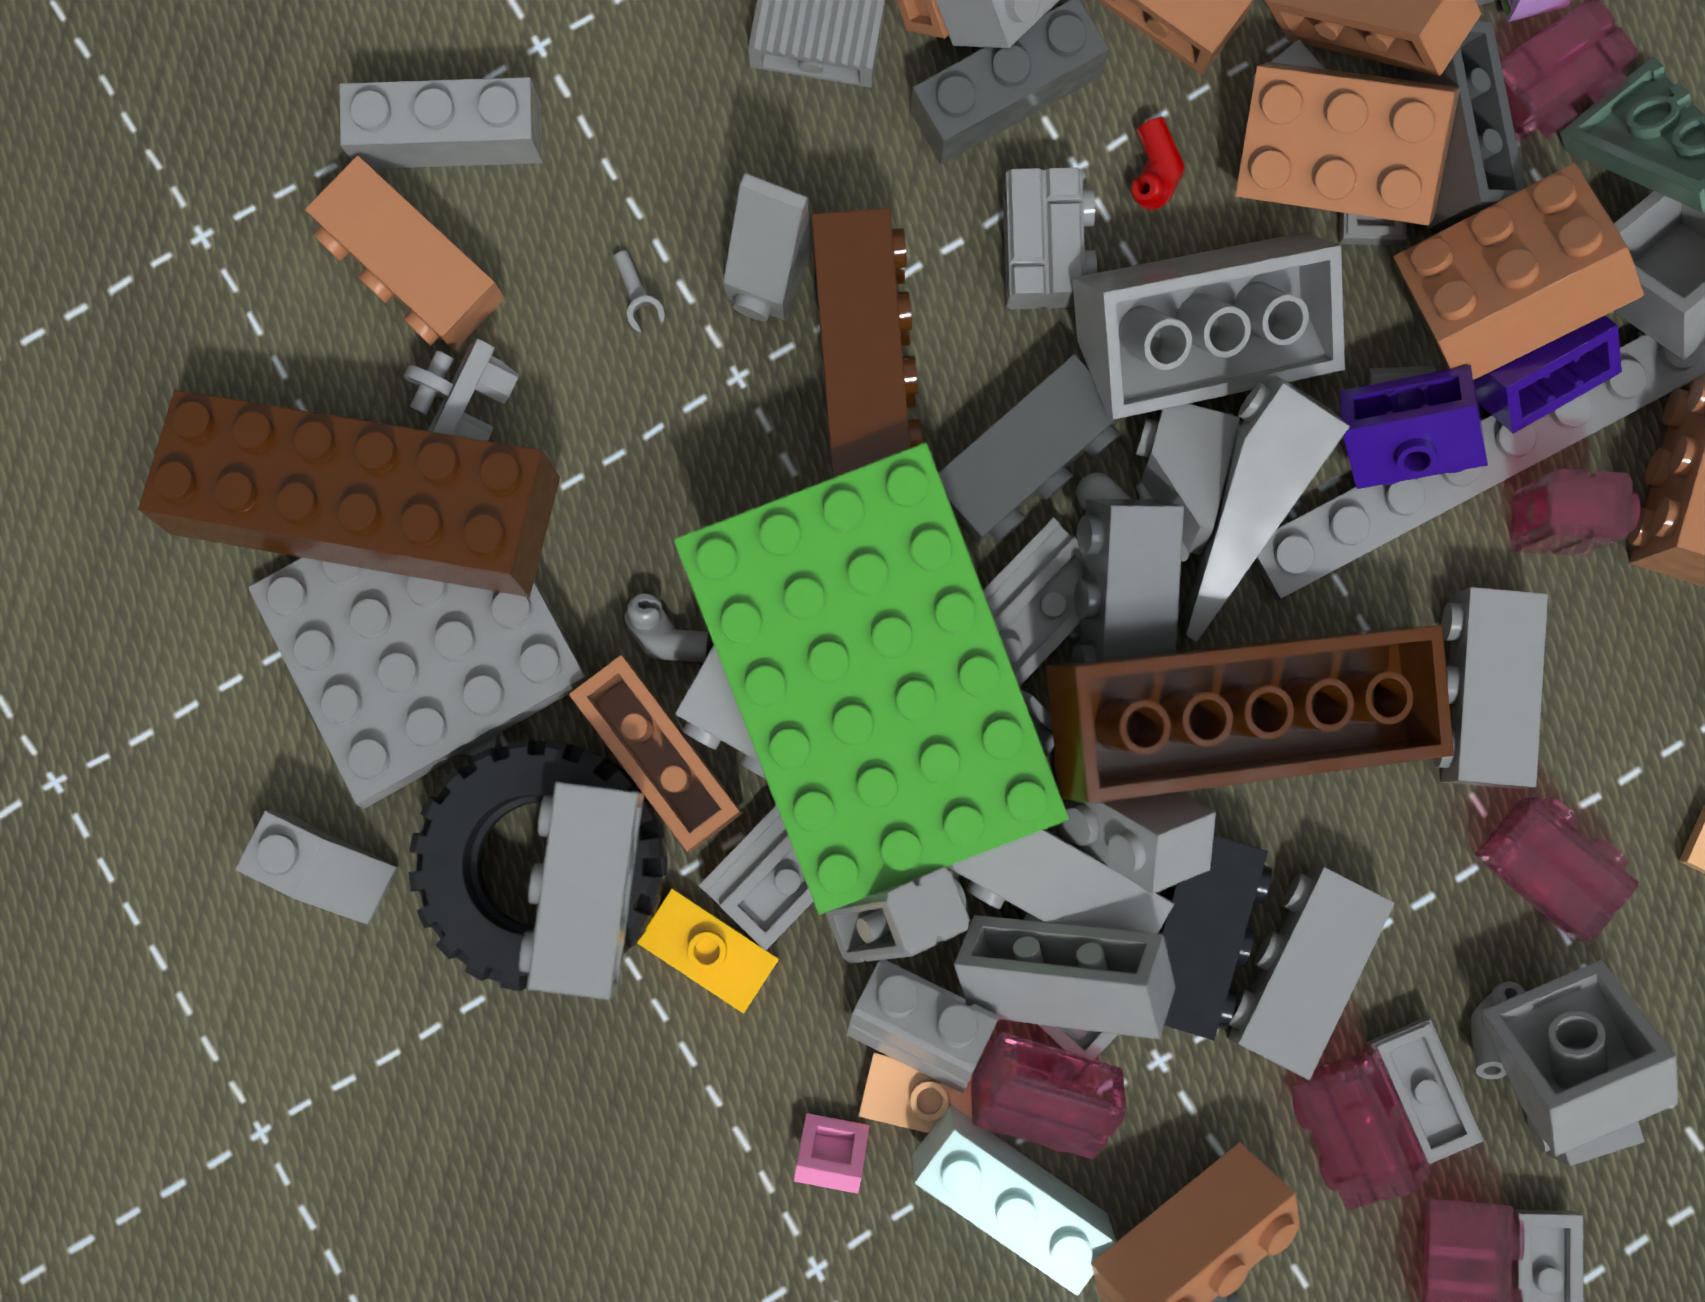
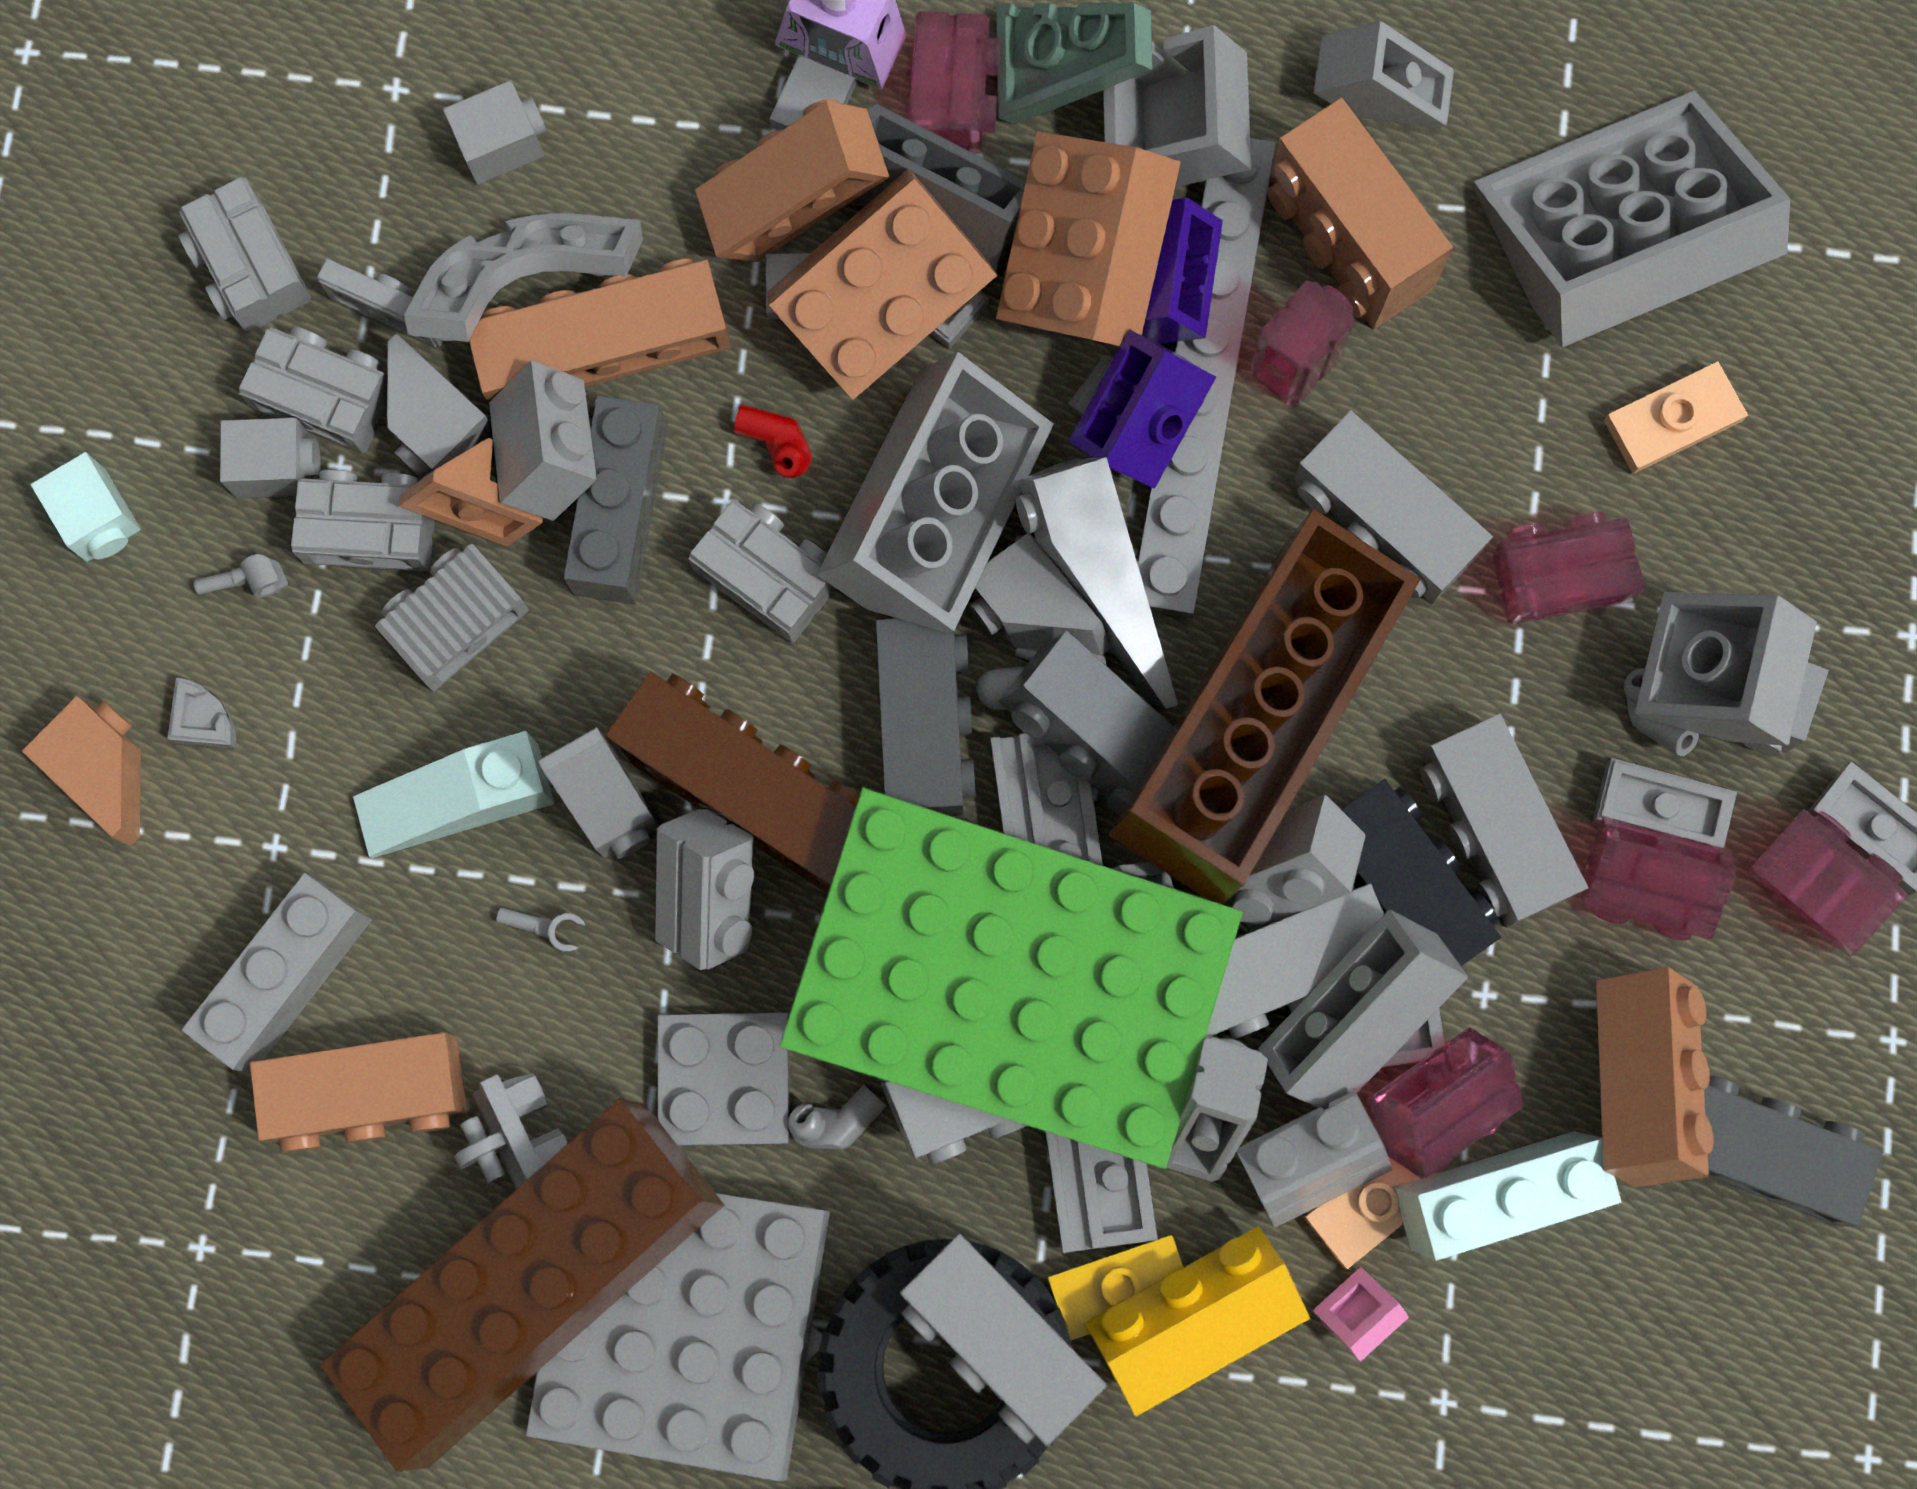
camera: 50 degrees left, 5 degrees down
(625, 522) = (723, 1079): none -> light grey plate
(656, 753) = (931, 1201): nougat brick -> none
(680, 142) = (454, 794): none -> light aqua slope
(726, 1030) = (1197, 1320): none -> yellow brick
(757, 387) = (703, 888): none -> light grey brick

